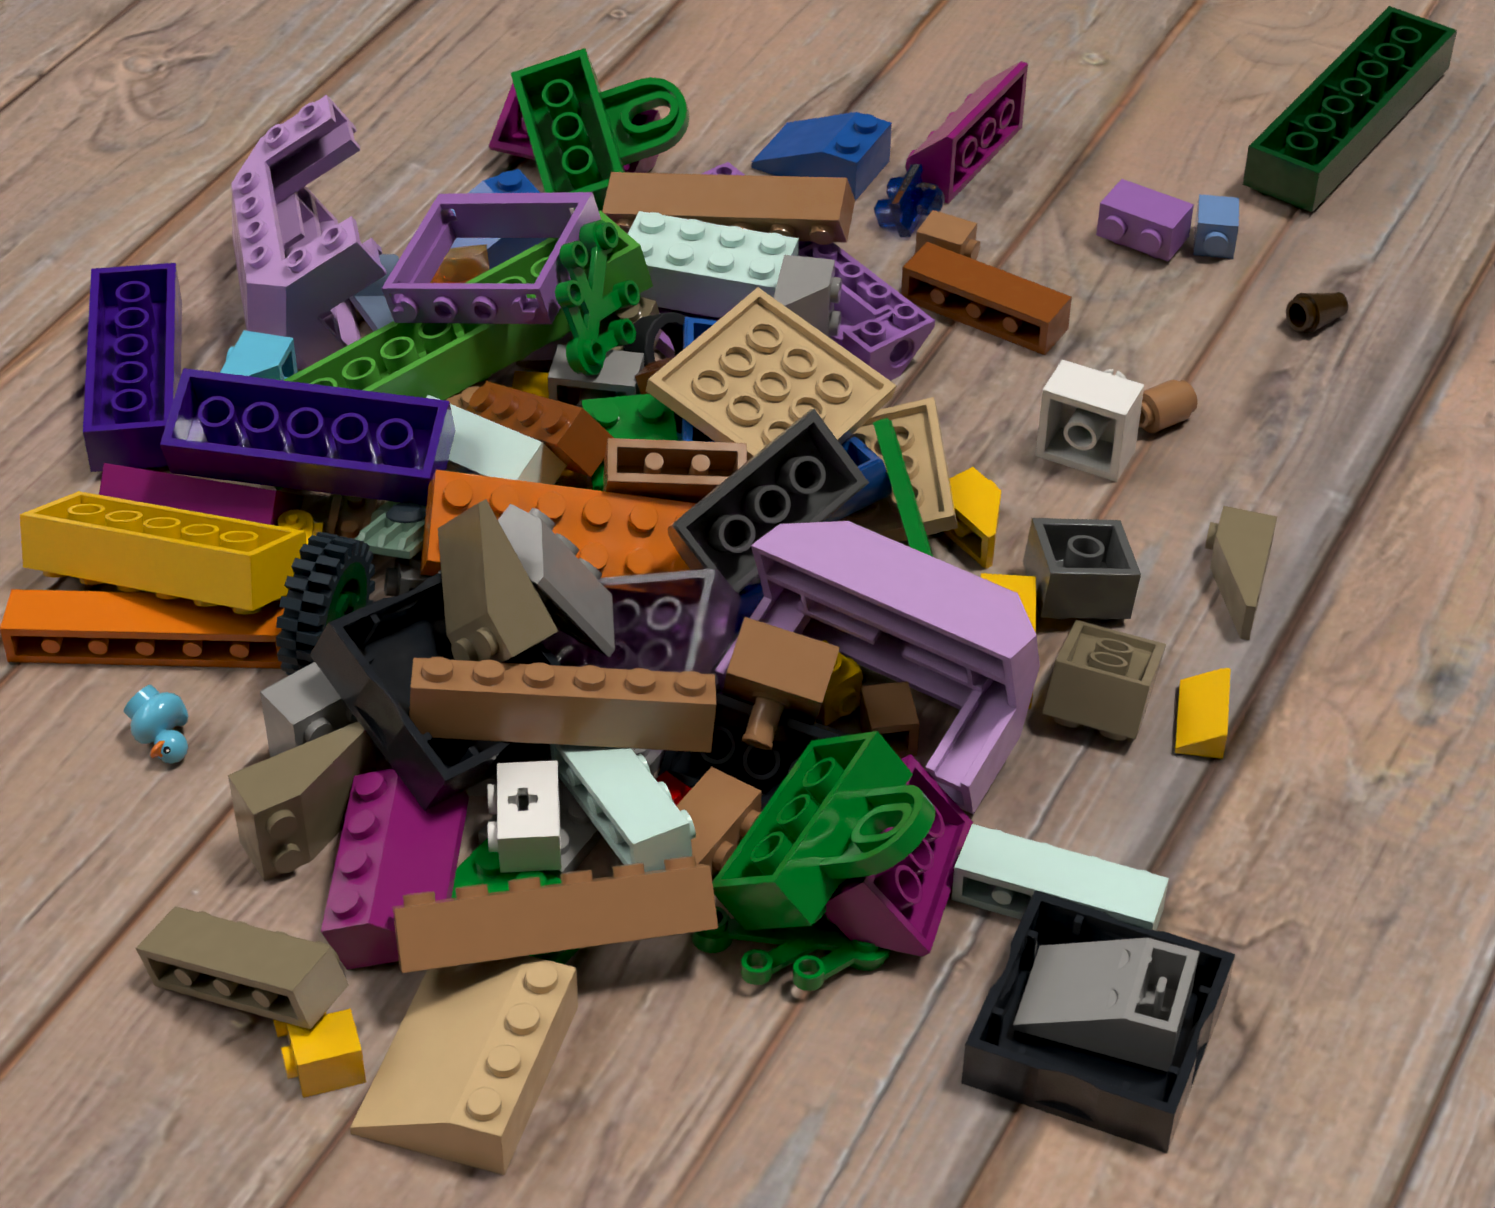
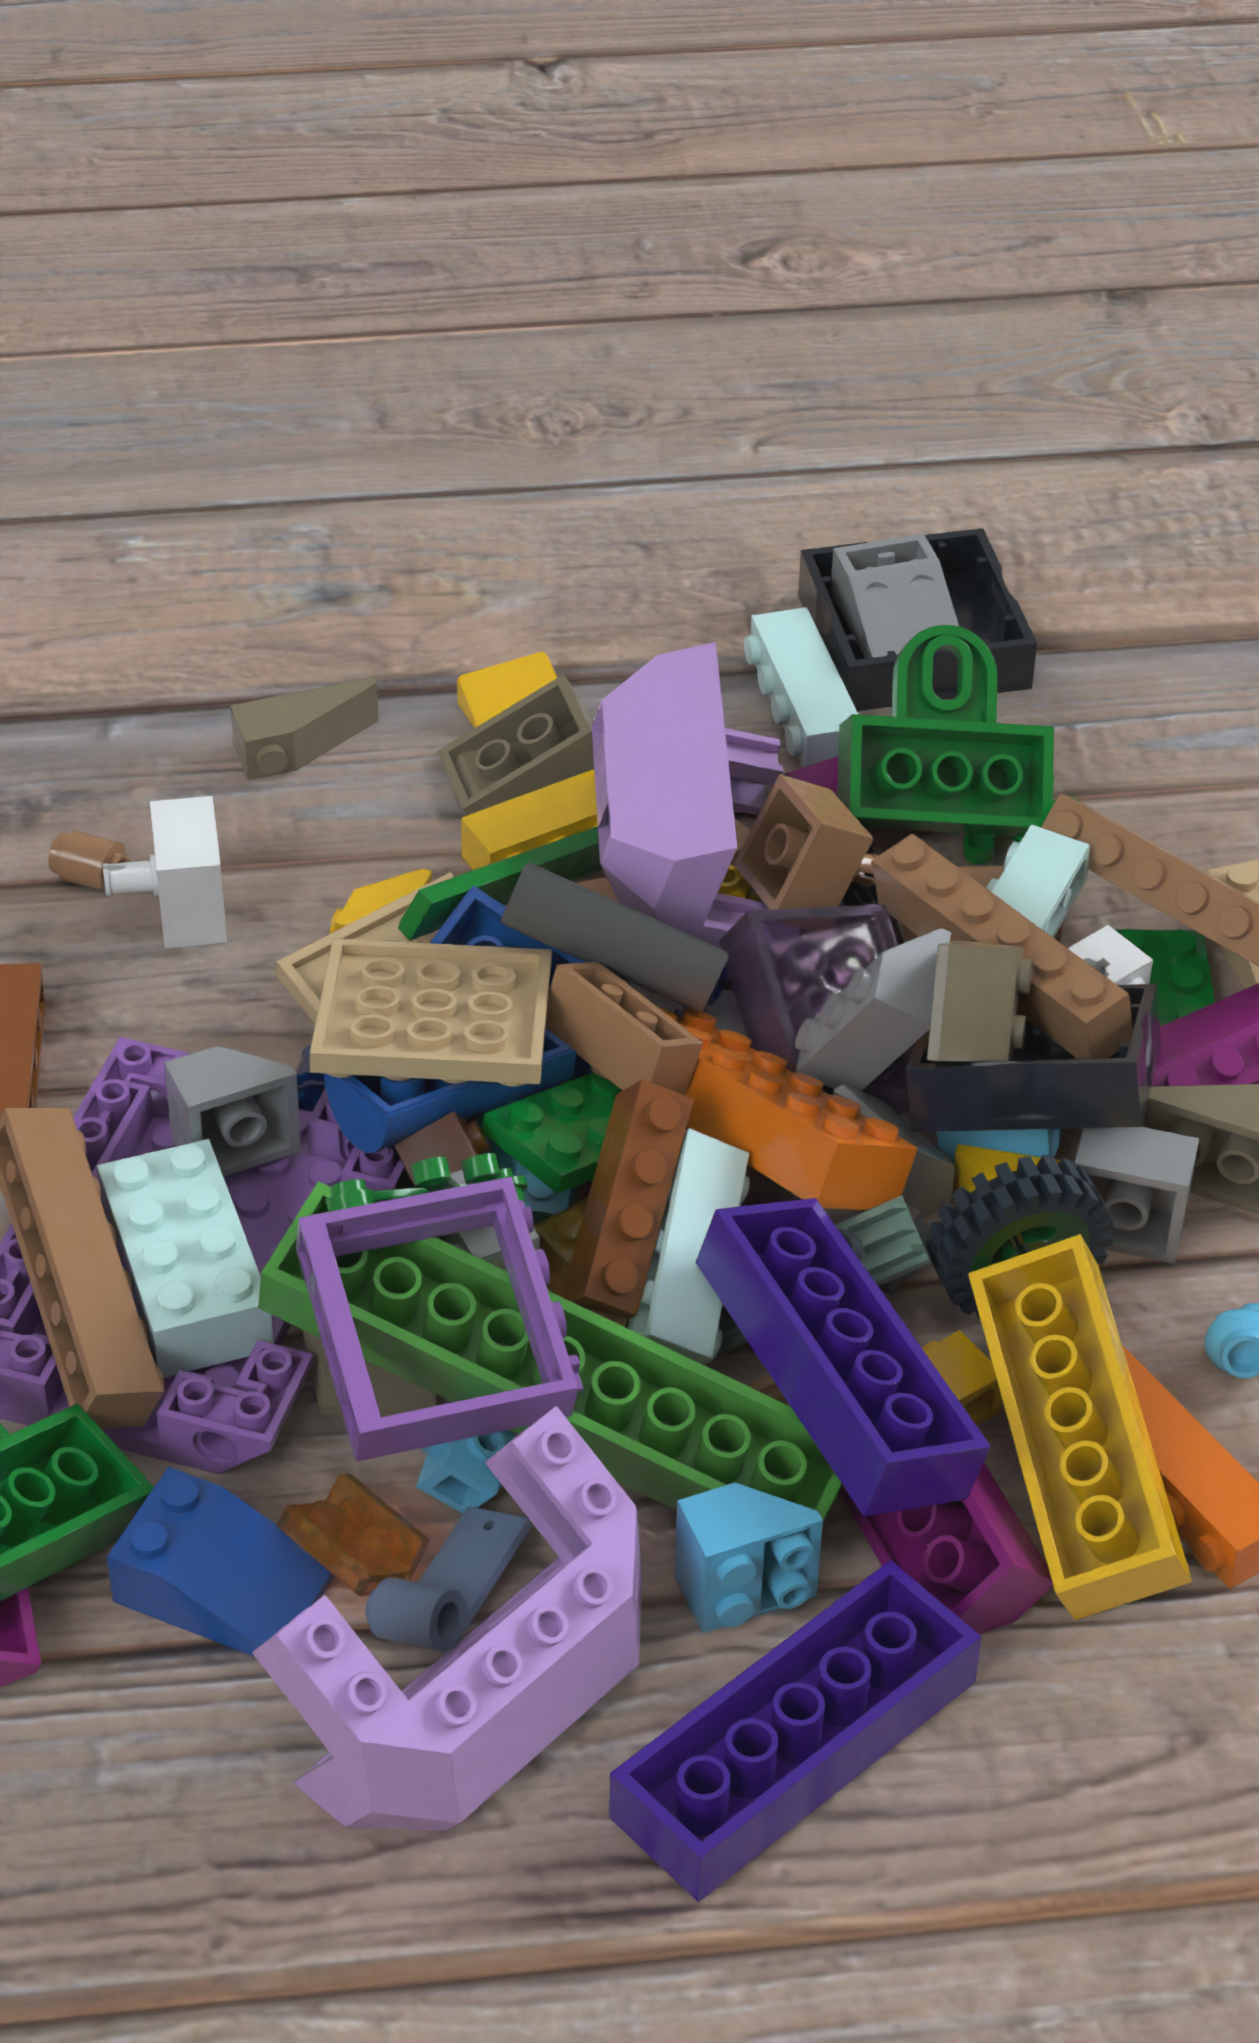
camera: 125 degrees left, 0 degrees up
(1082, 568) = (410, 803): dark grey brick -> none

